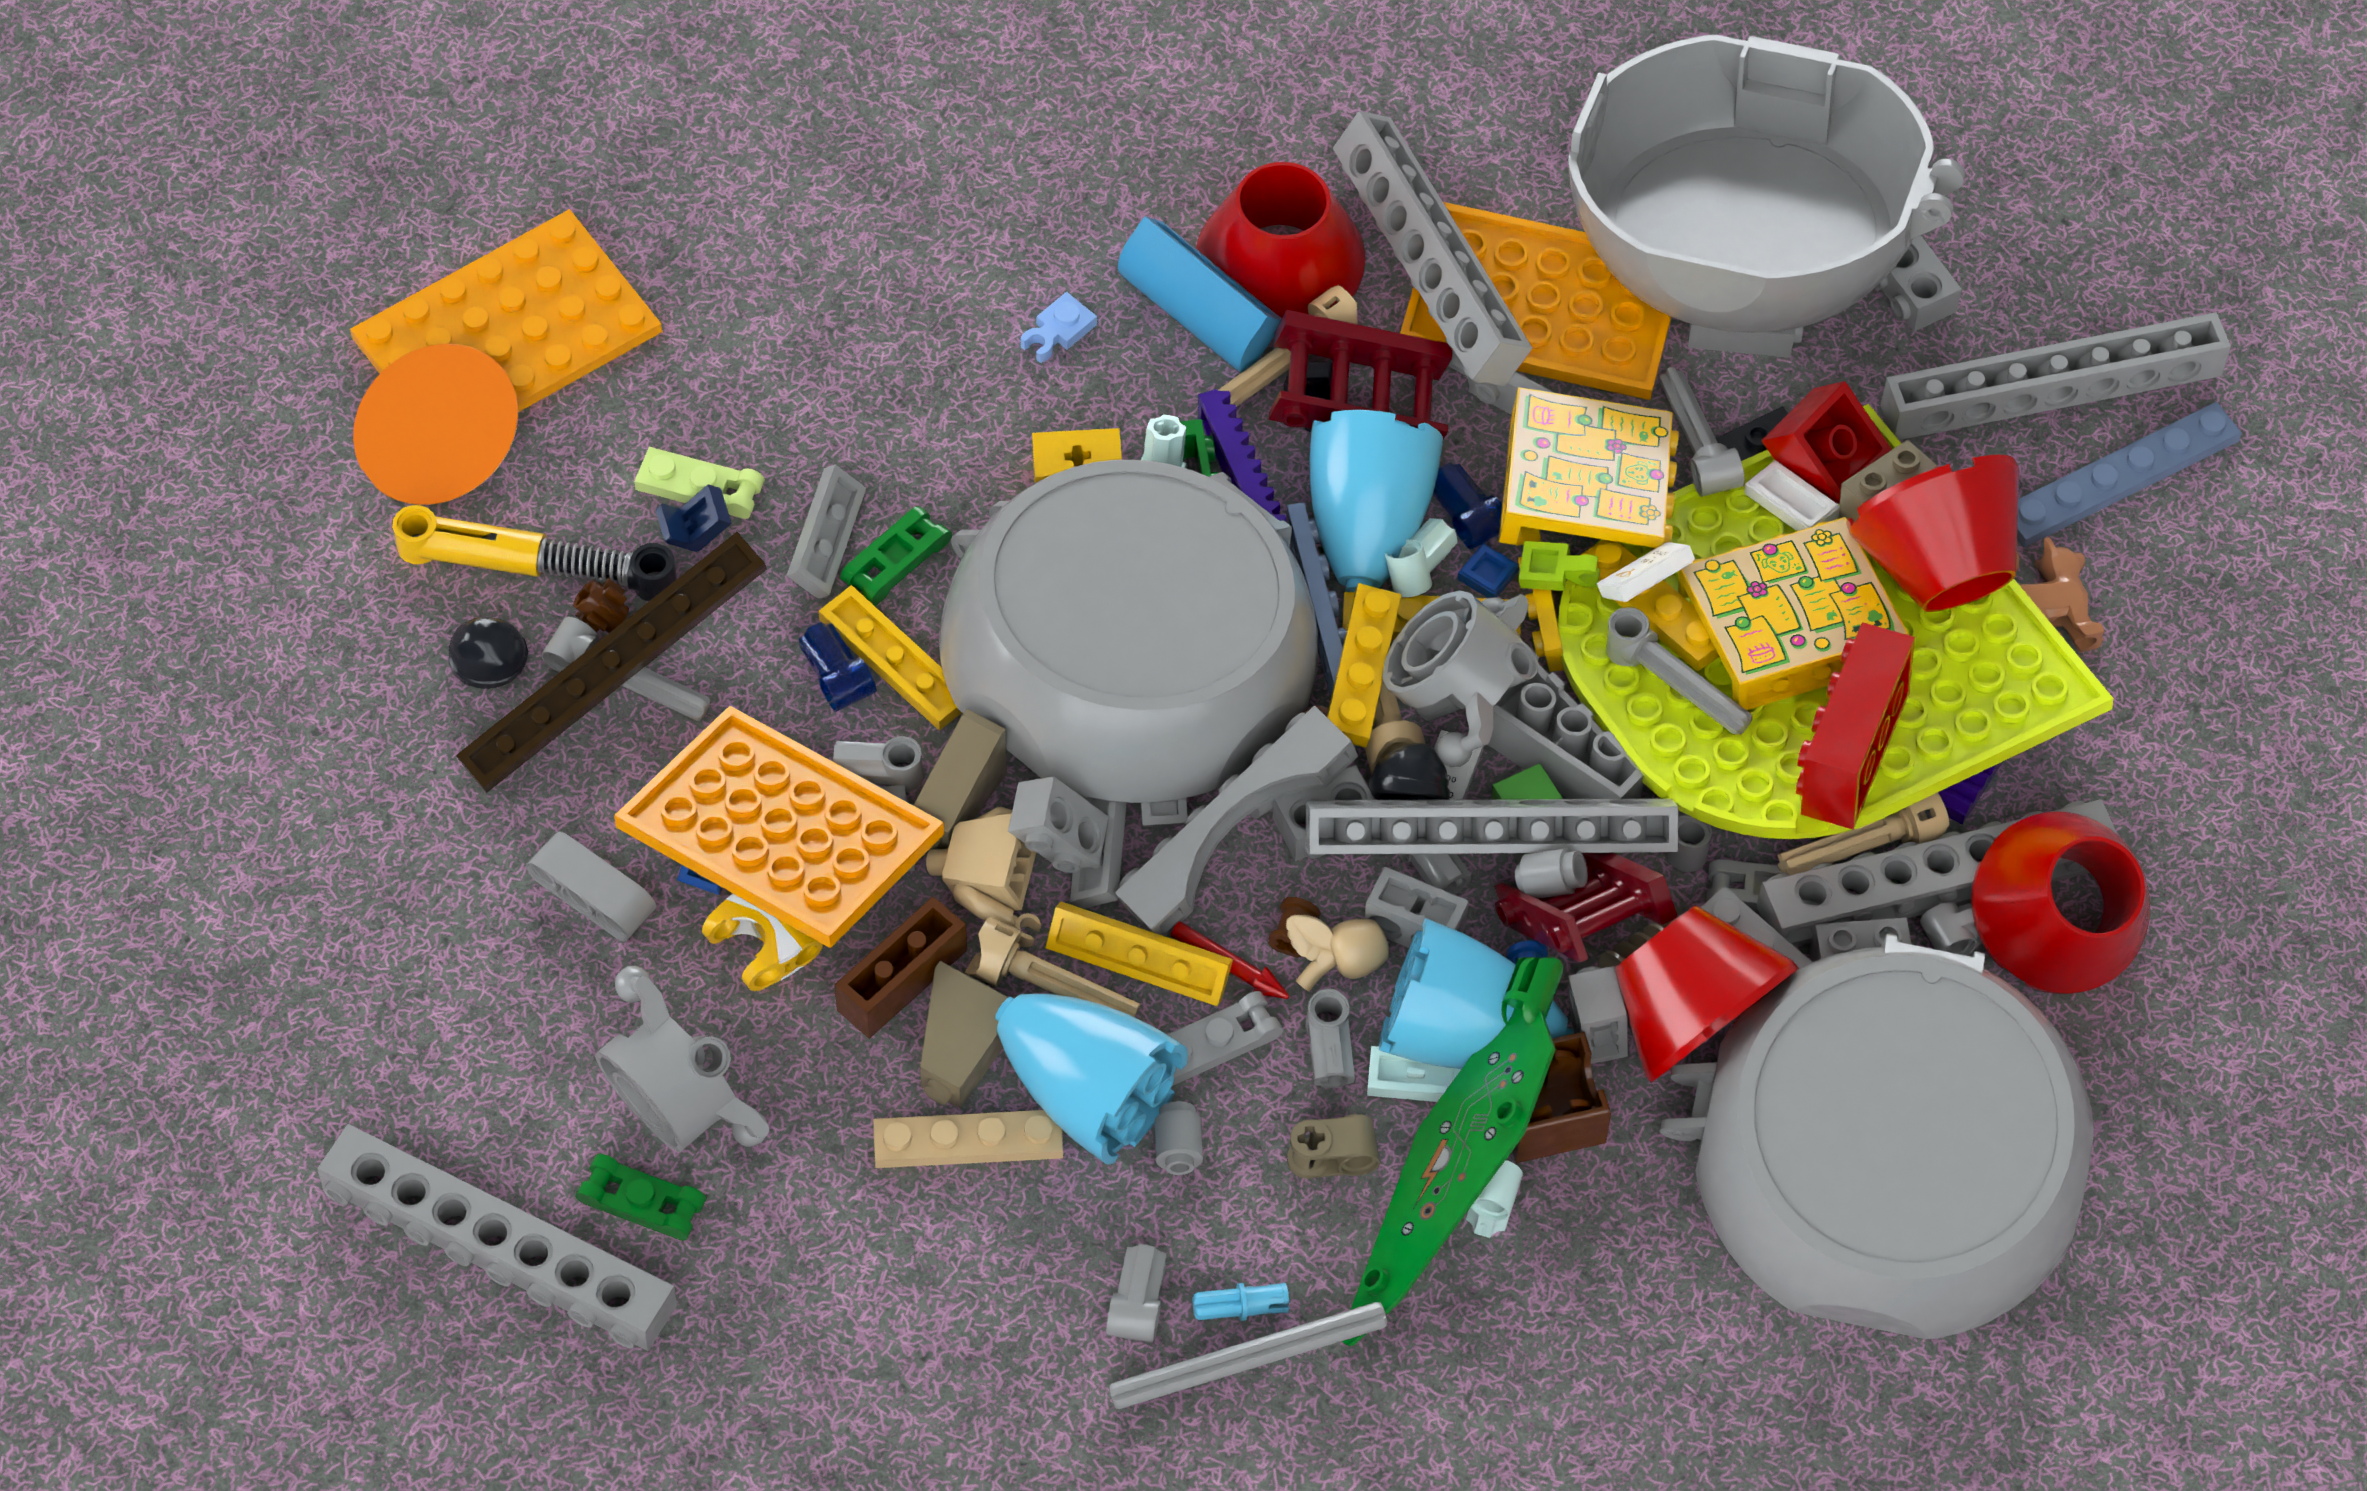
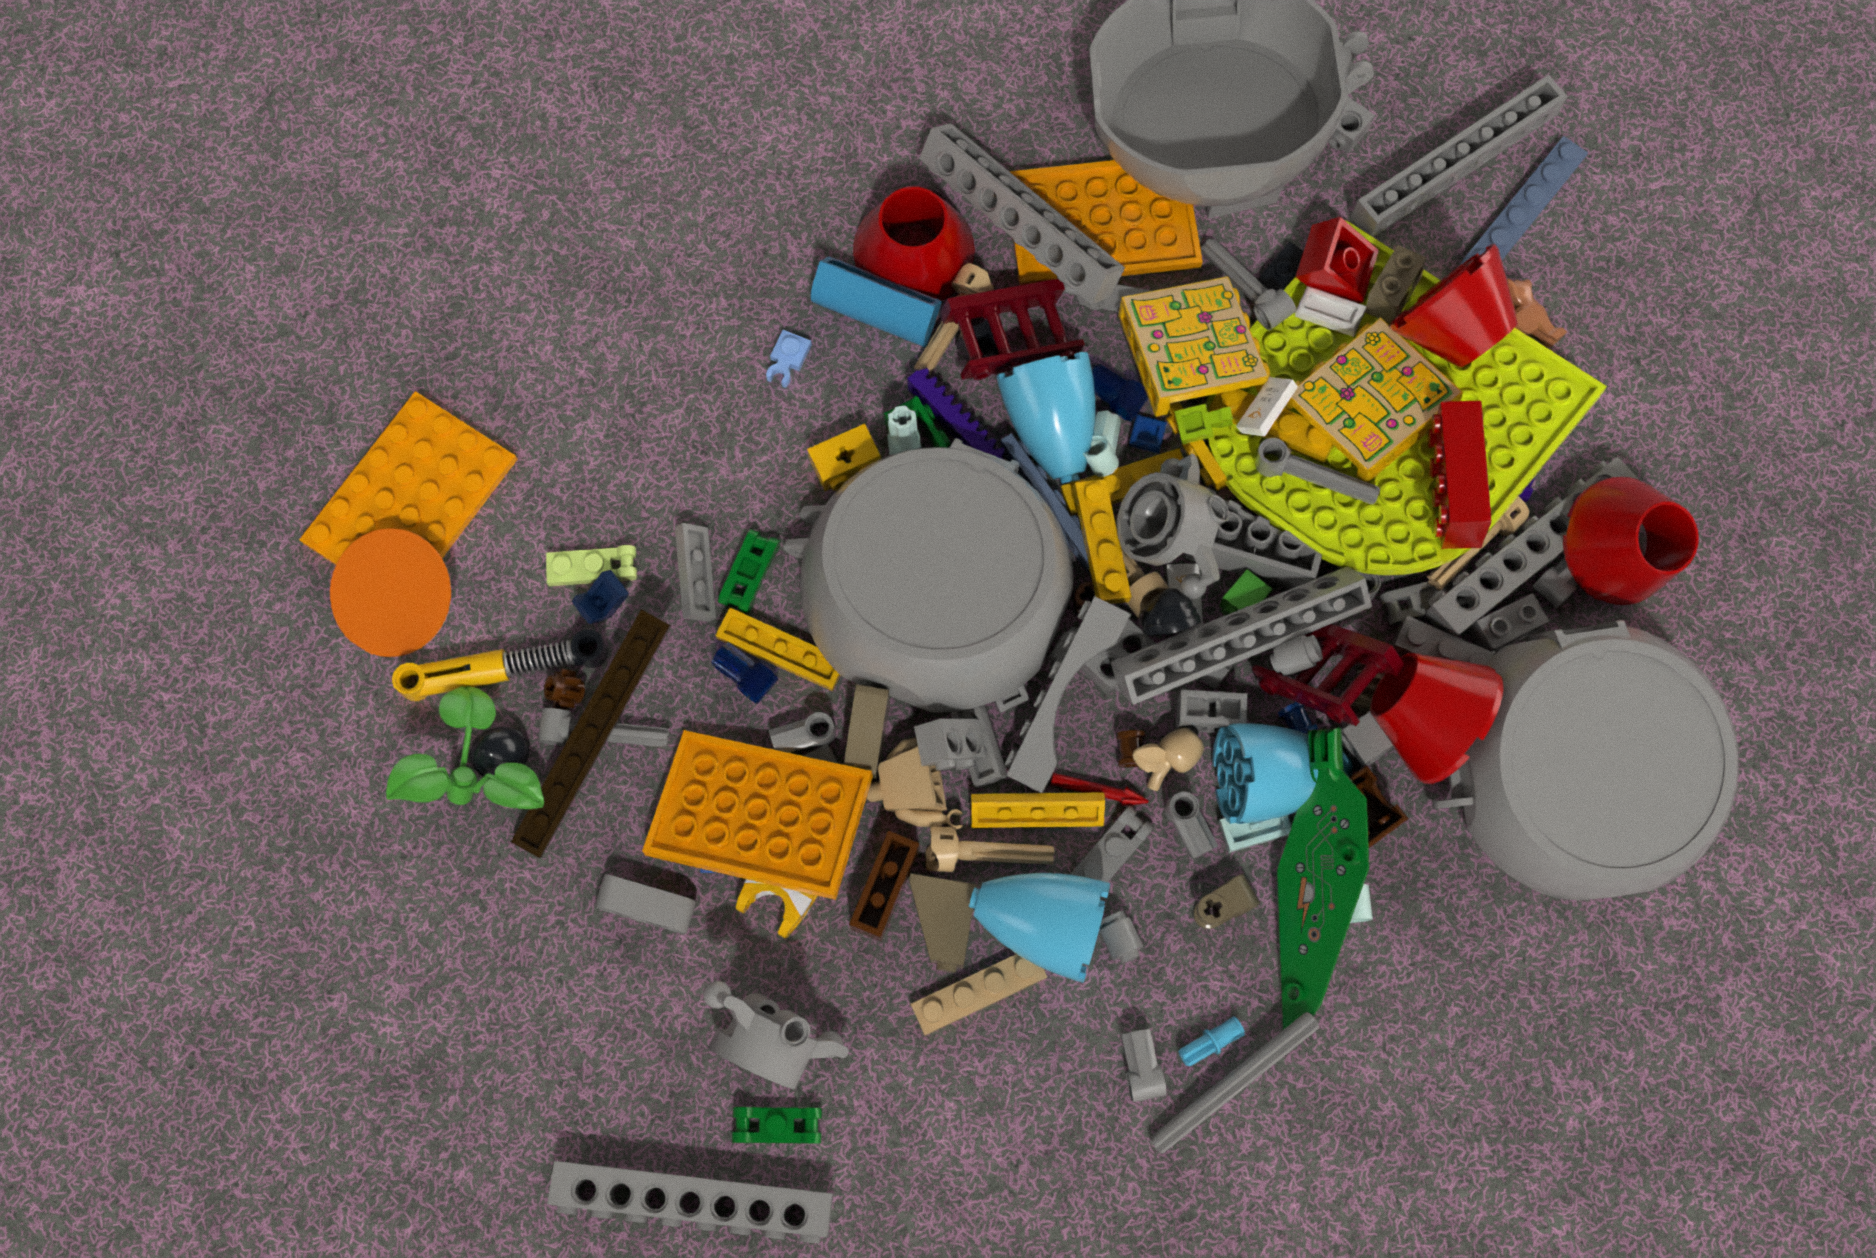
camera: 20 degrees left, 15 degrees up
(384, 624) = (420, 780): none -> bright green plant

